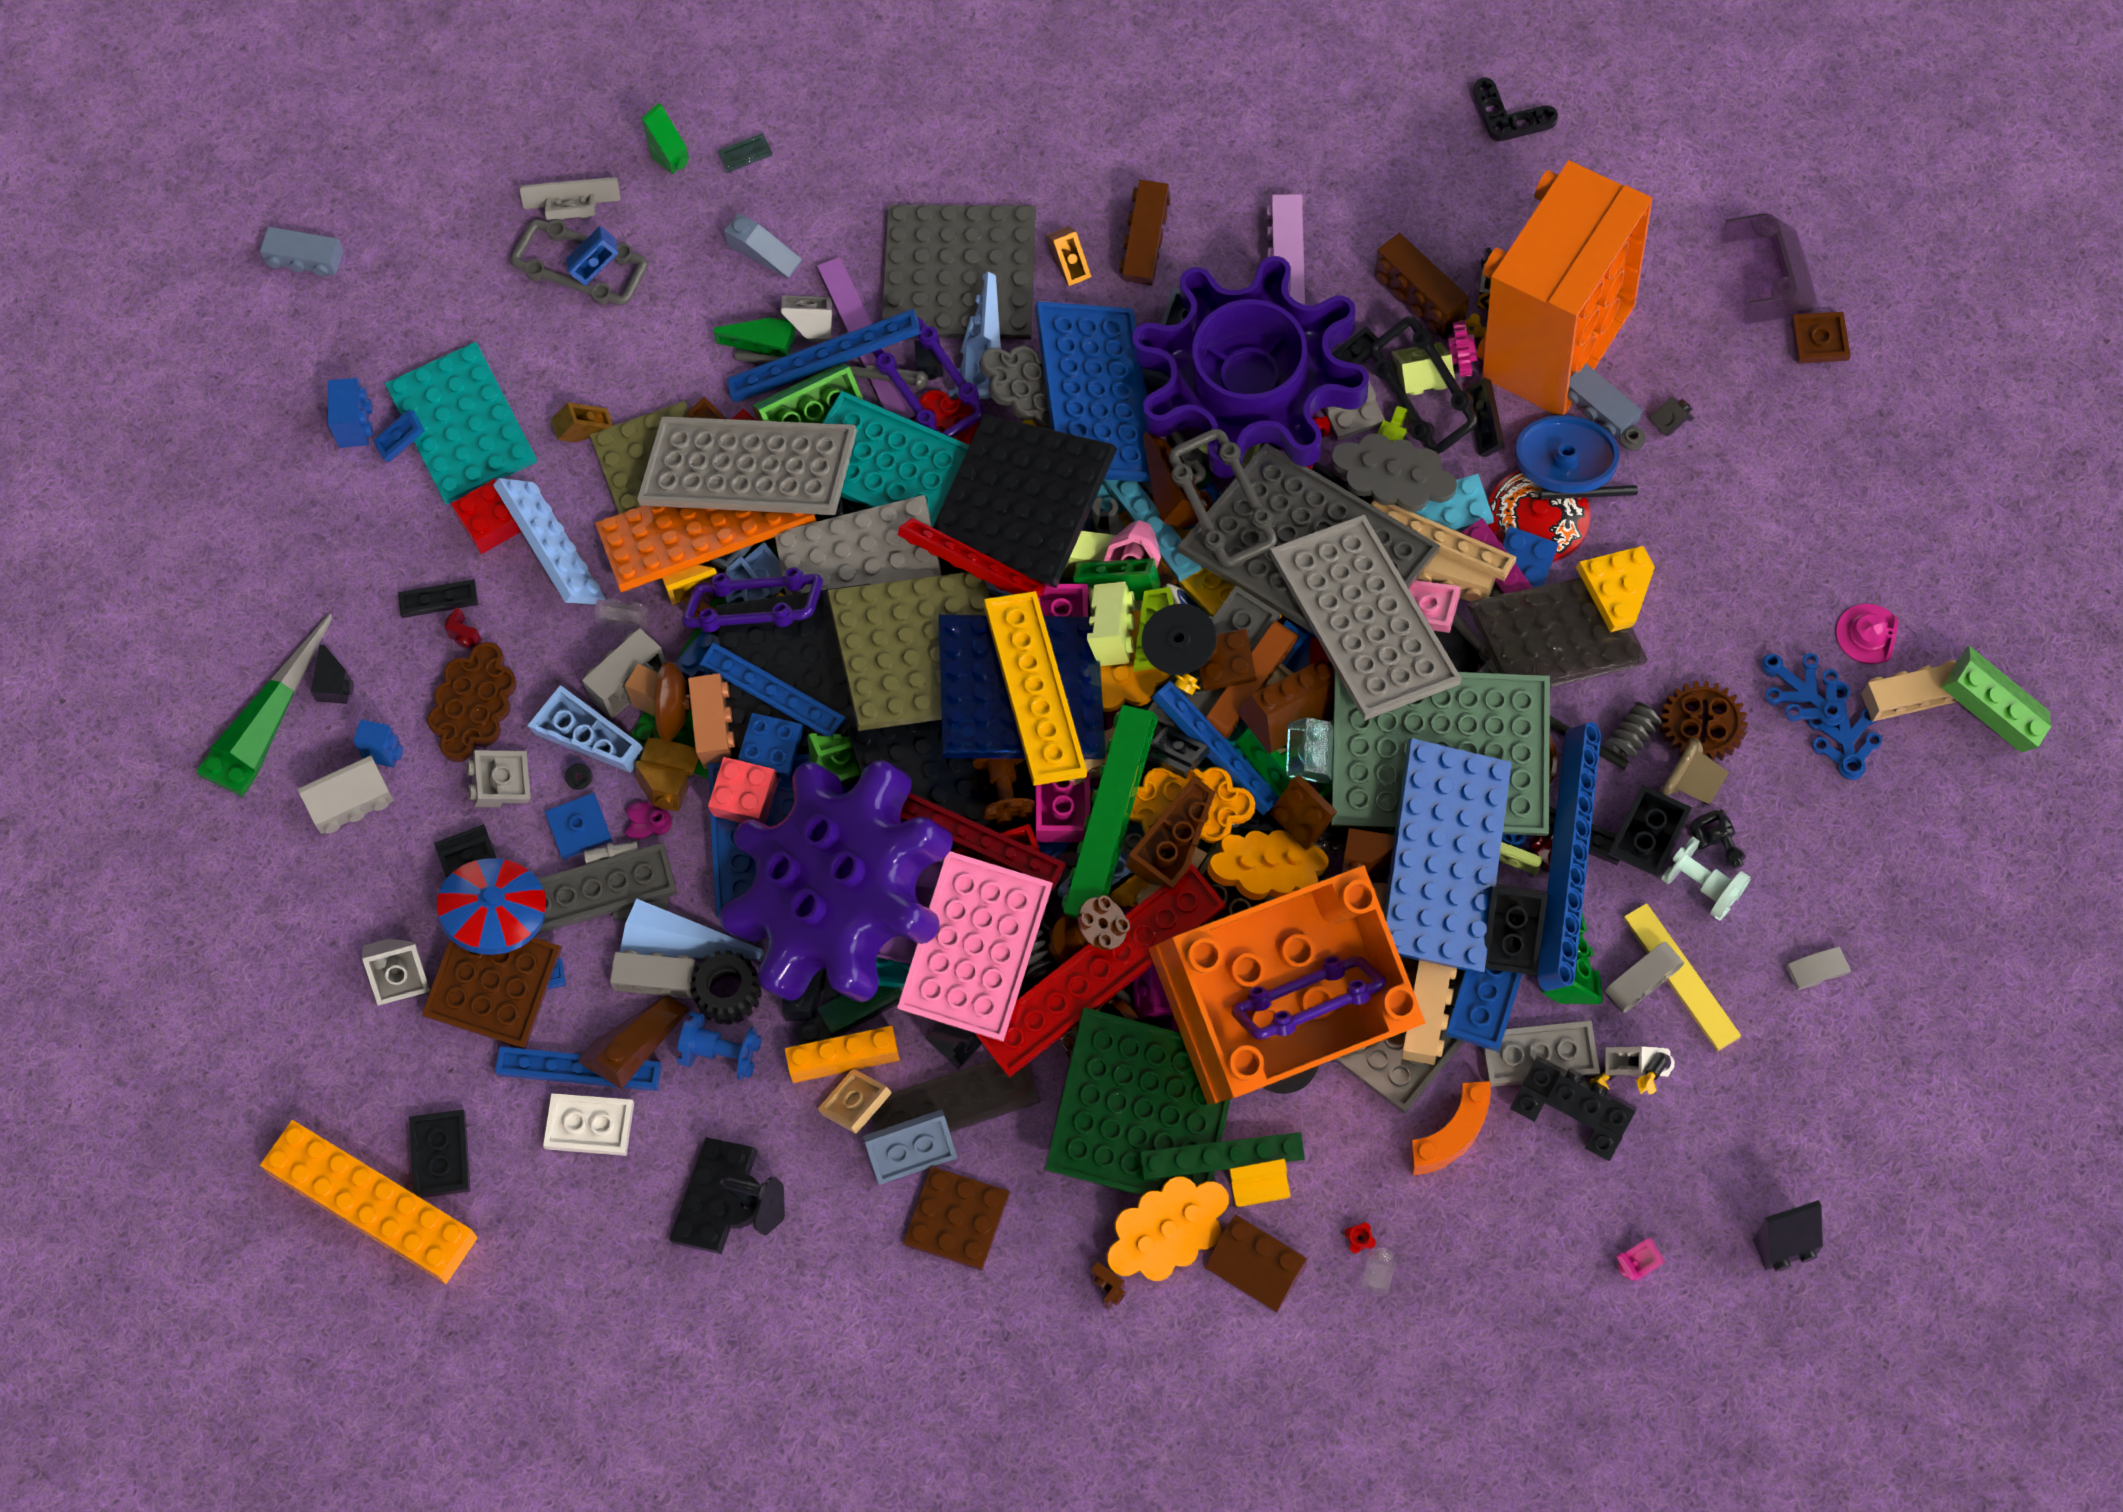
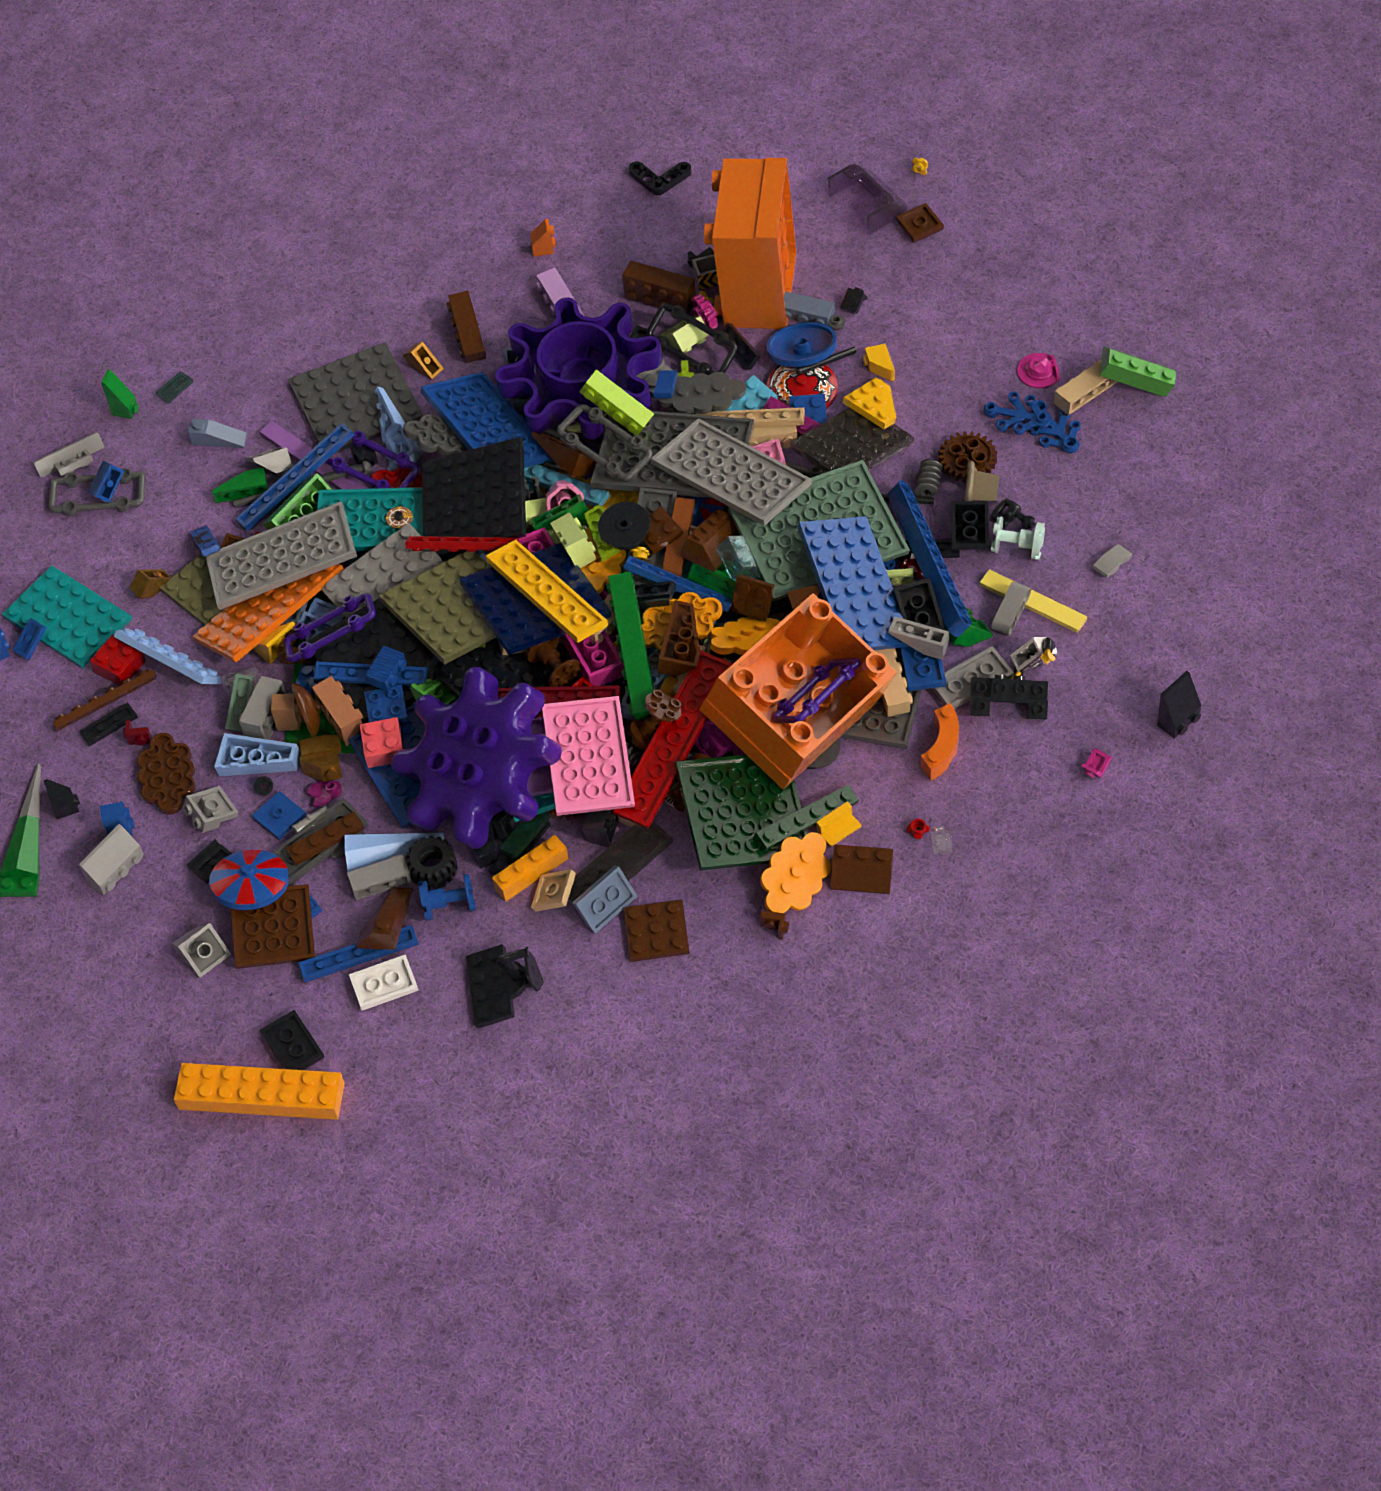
camera: 25 degrees left, 10 degrees down
(436, 563) = (110, 696): none -> reddish brown plate
(607, 638) = (241, 692): none -> sand green plate
(612, 890) = (324, 838): none -> reddish brown plate
(672, 395) = (205, 540): none -> blue tile
(789, 697) = (386, 668): none -> blue brick
(921, 477) = (399, 517): none -> piece
(1265, 447) = (616, 402): none -> lime brick
(1307, 144) = (541, 239): none -> orange slope
(1352, 439) = (665, 384): none -> blue tile
(1493, 972) = (921, 637): none -> light grey slope
(1658, 524) = (879, 361): none -> yellow slope
(1865, 250) = (923, 166): none -> yellow plate

